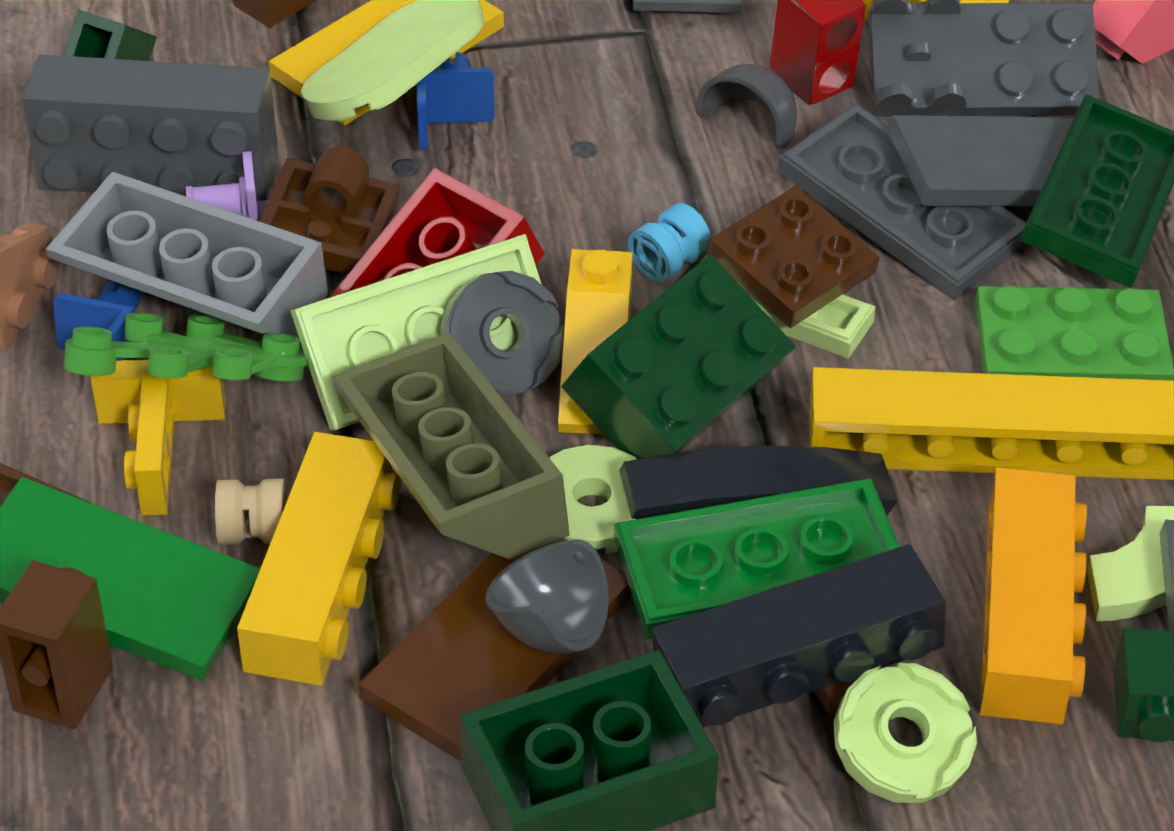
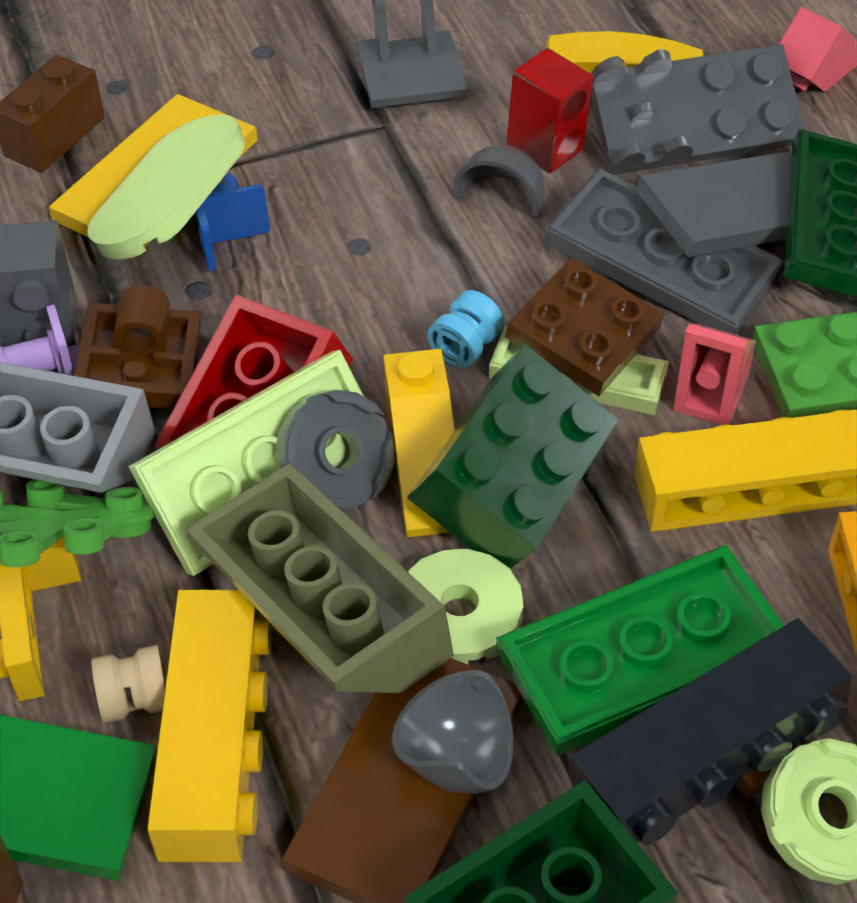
camera: 10 degrees left, 5 degrees up
(743, 473) = (602, 561): black slope -> none
(913, 320) = (712, 373): none -> coral slope

